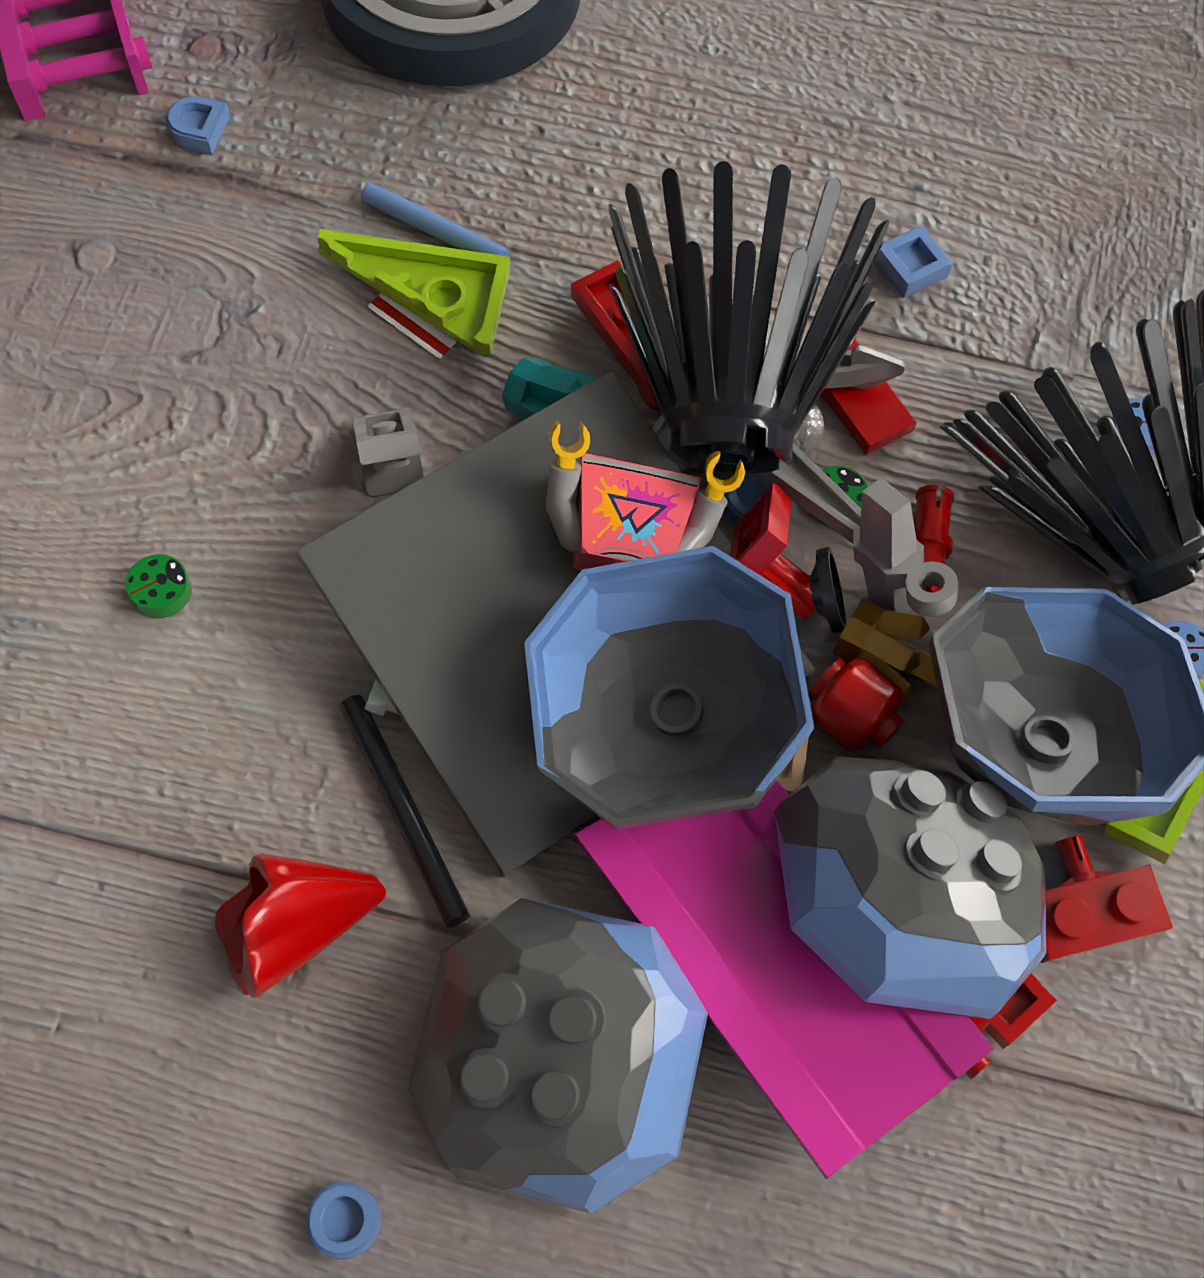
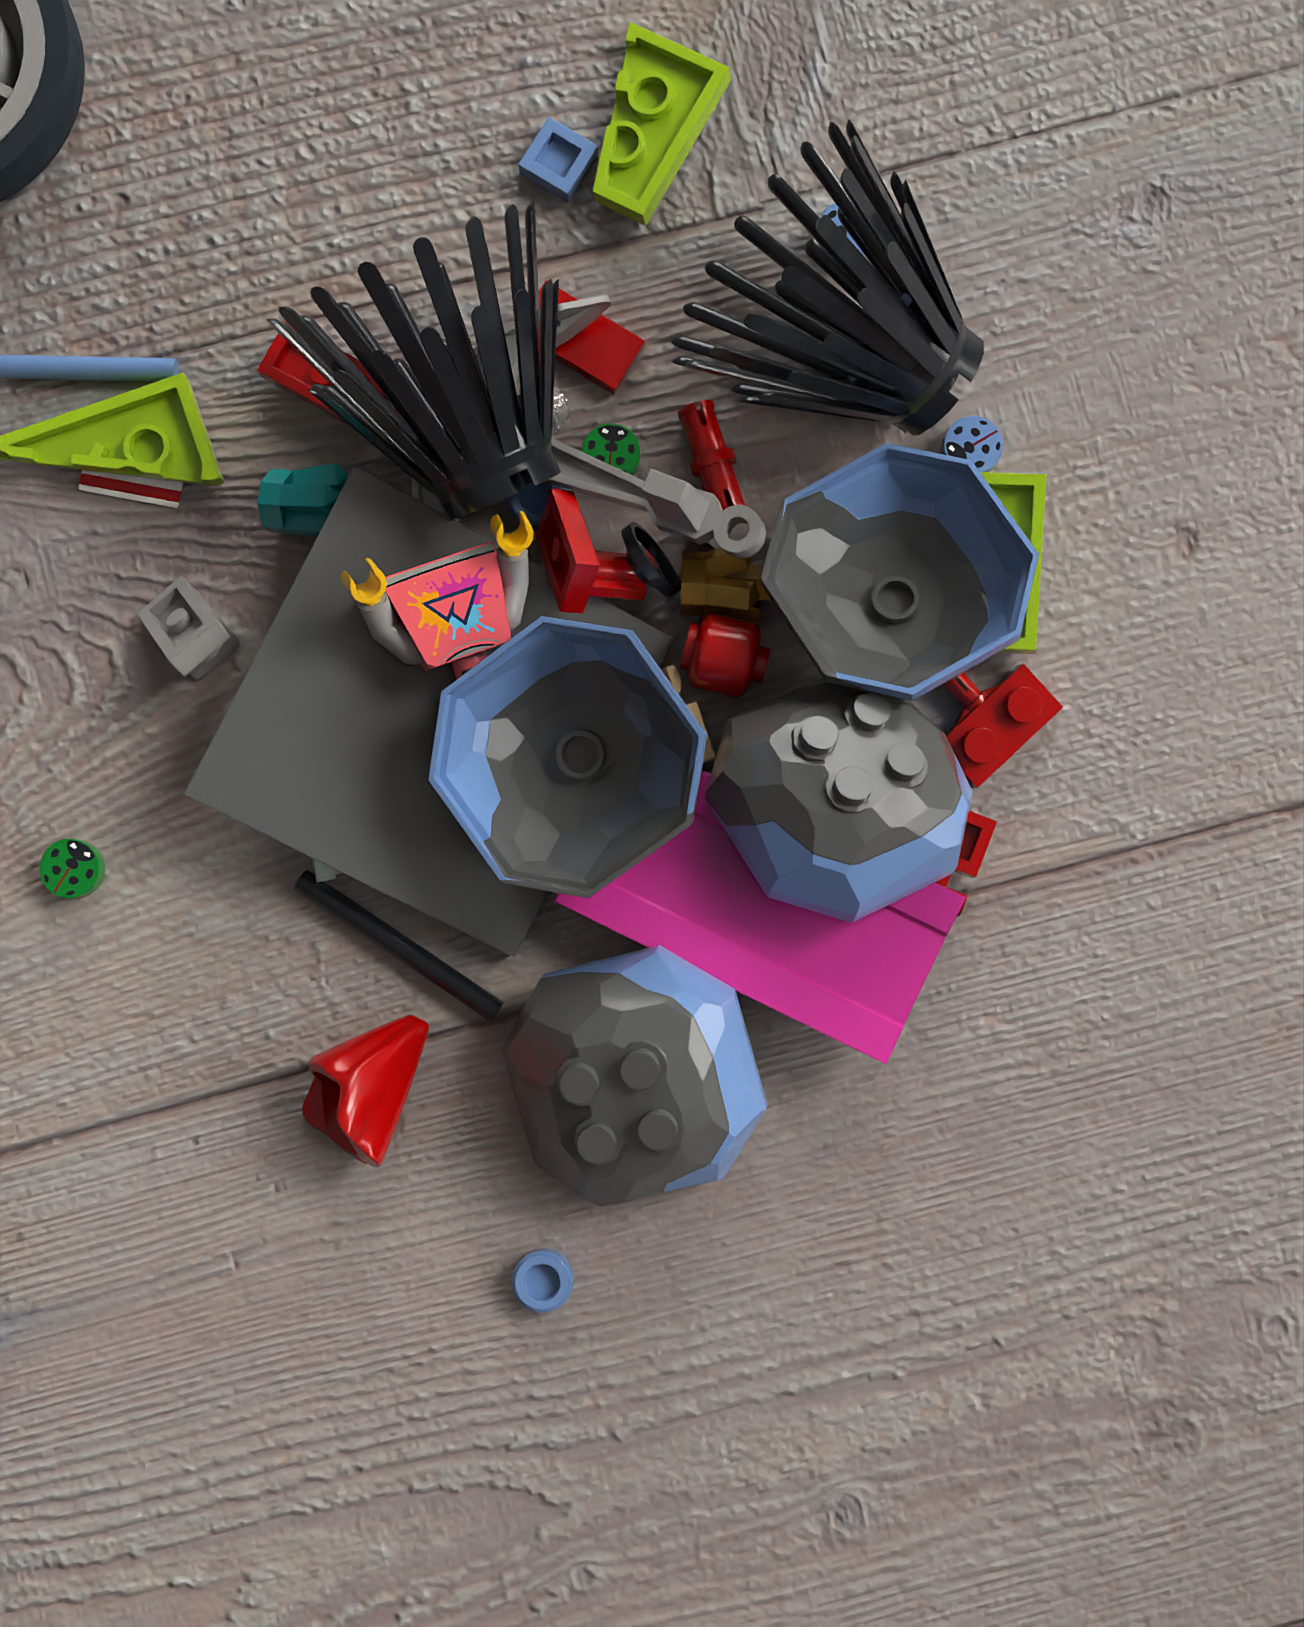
camera: 25 degrees left, 20 degrees up
(1011, 269) = (656, 118): none -> lime wing

